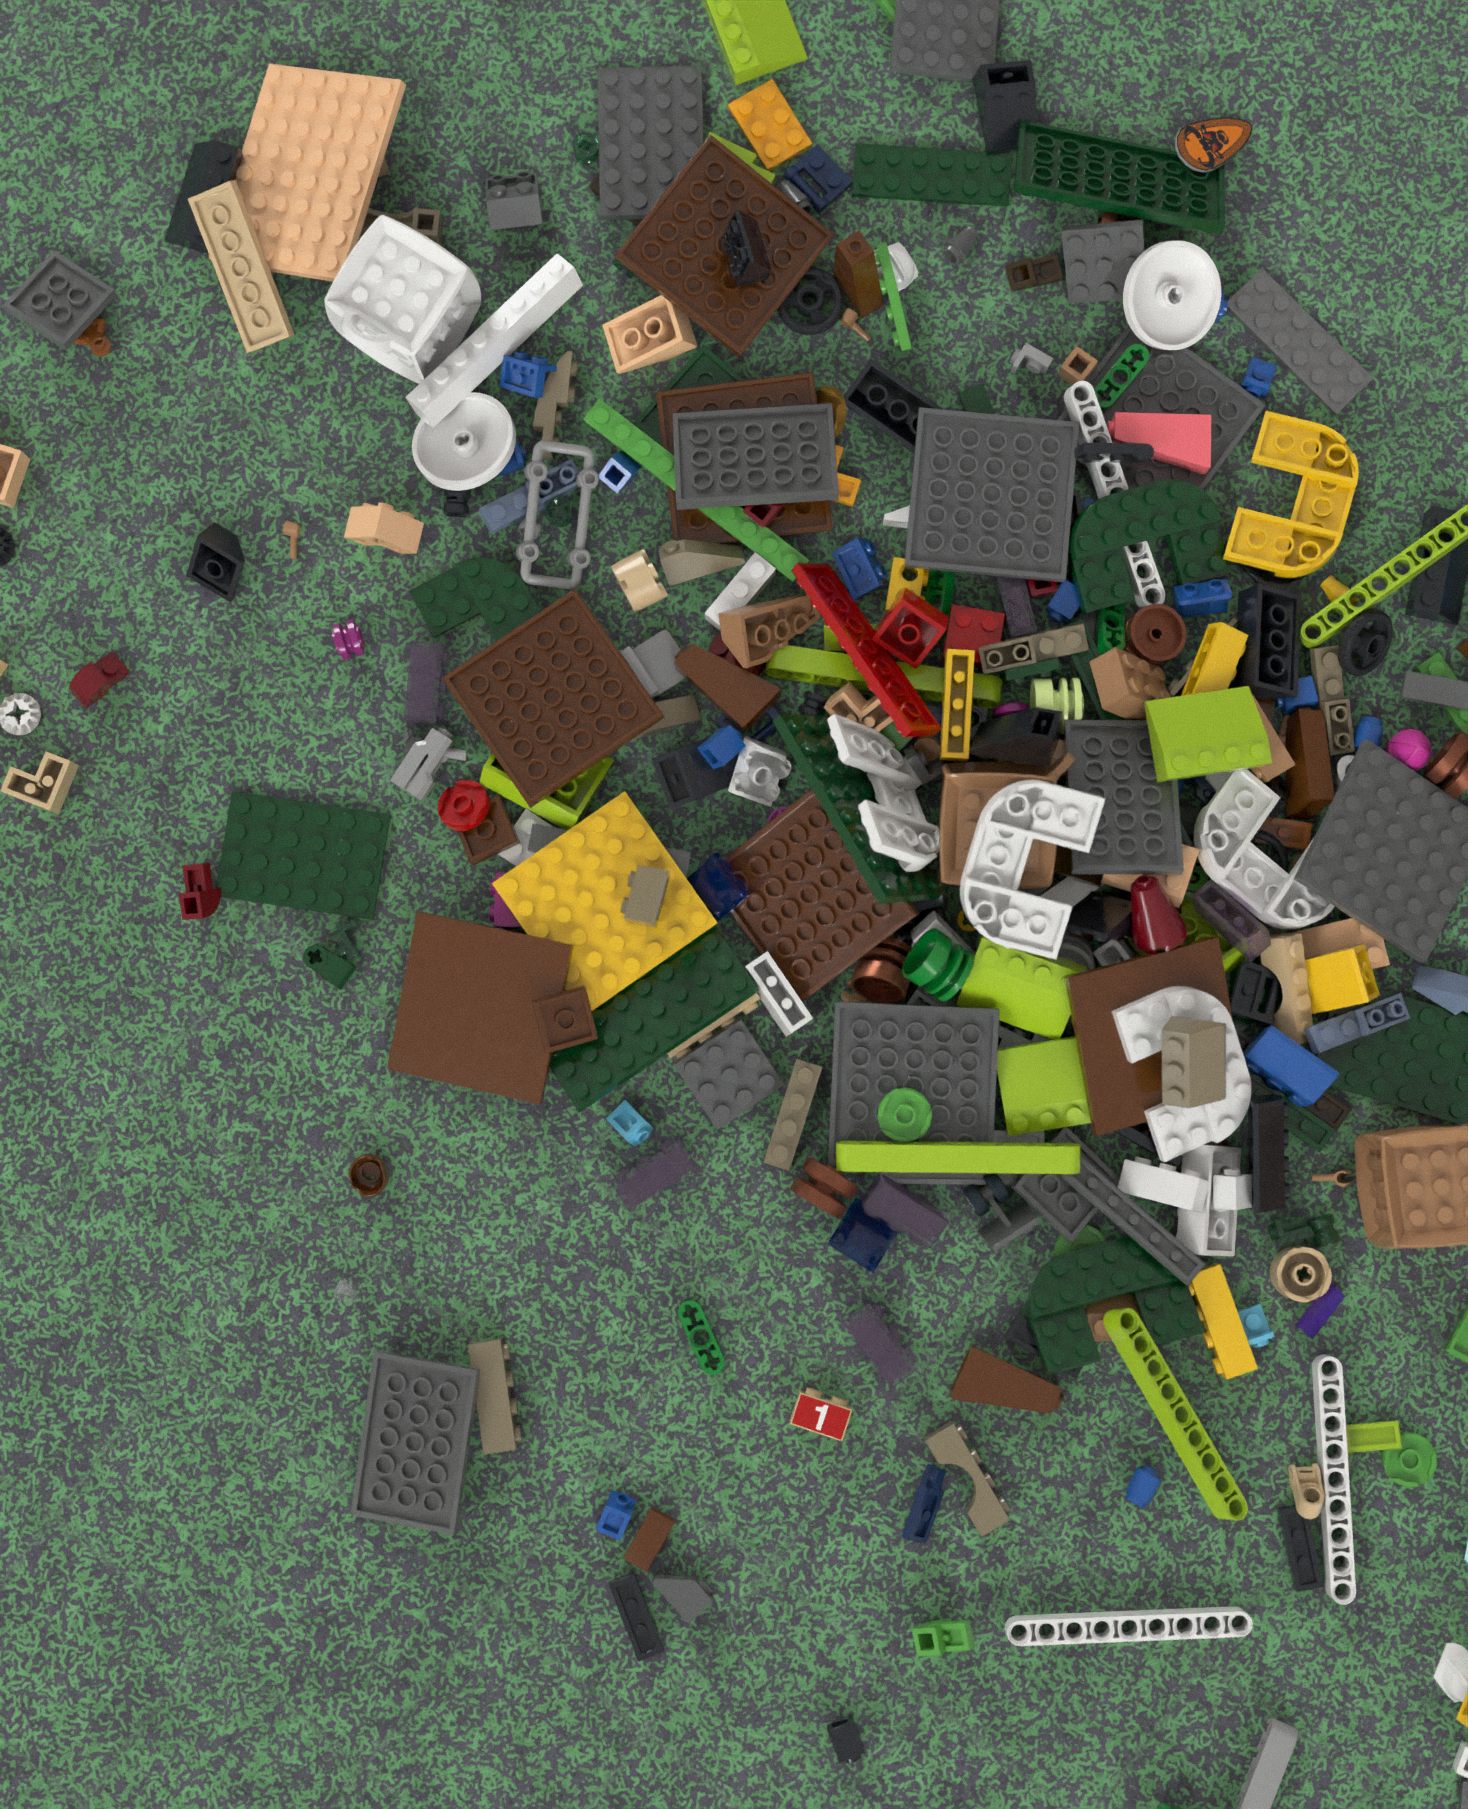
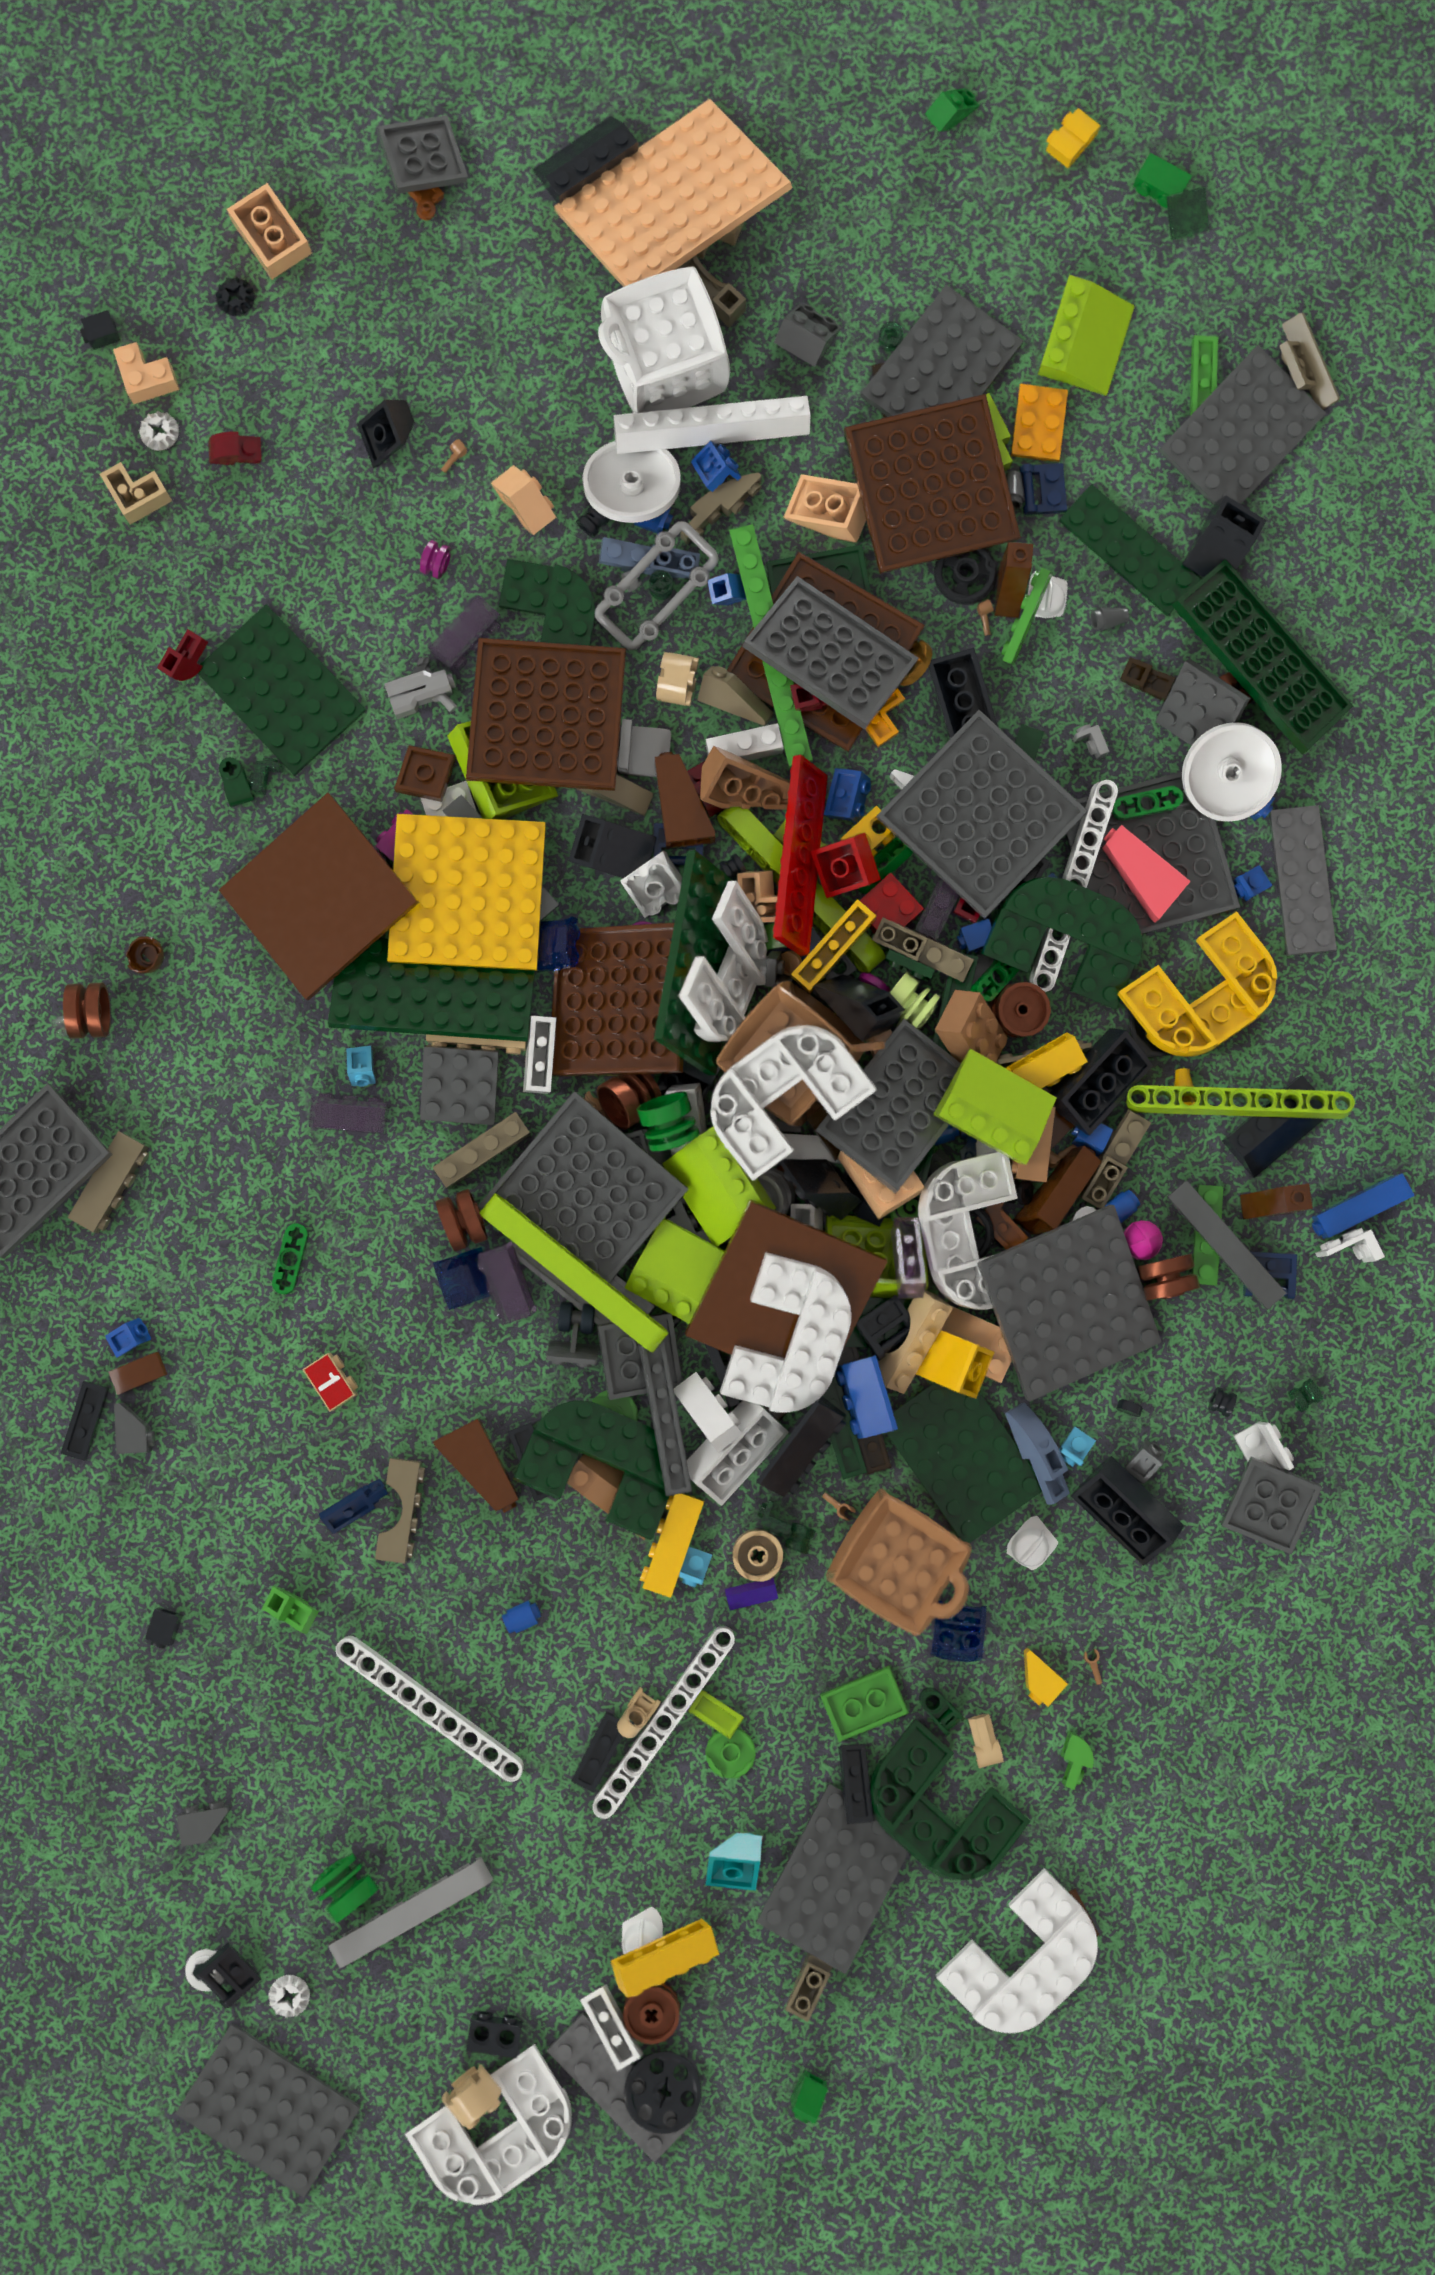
camera: 30 degrees right, 0 degrees up
(241, 266) = (570, 229): tan plate -> none
(358, 1262) = (86, 1010): none -> copper wheel
(463, 805) = (423, 743): red tile -> none
(564, 1019) = (370, 951): reddish brown tile -> none
(646, 896) = (498, 908): dark tan slope -> none
(722, 746) = (640, 844): blue brick -> none
(745, 250) = (943, 496): black slope -> none
(881, 1343) = (414, 1365): clear purple brick -> none
(904, 1114) = (560, 1212): bright green tile -> none
(1077, 366) = (1122, 771): medium nougat brick -> none
(1115, 451) = (1096, 852): black hinge -> none
(1154, 917) = (852, 1209): dark red cone -> none
(1167, 1398) = (589, 1593): lime beam -> none
(1193, 1062) = (794, 1334): dark tan slope -> none
(1201, 598) = (1078, 1011): blue bracket -> none
(1211, 142) = (1354, 684): shield -> none
(1232, 1190) = (754, 1454): white brick -> none
(1356, 1023) = (942, 1406): sand blue slope -> none
(1369, 643) = (1173, 1136): black wheel -> none

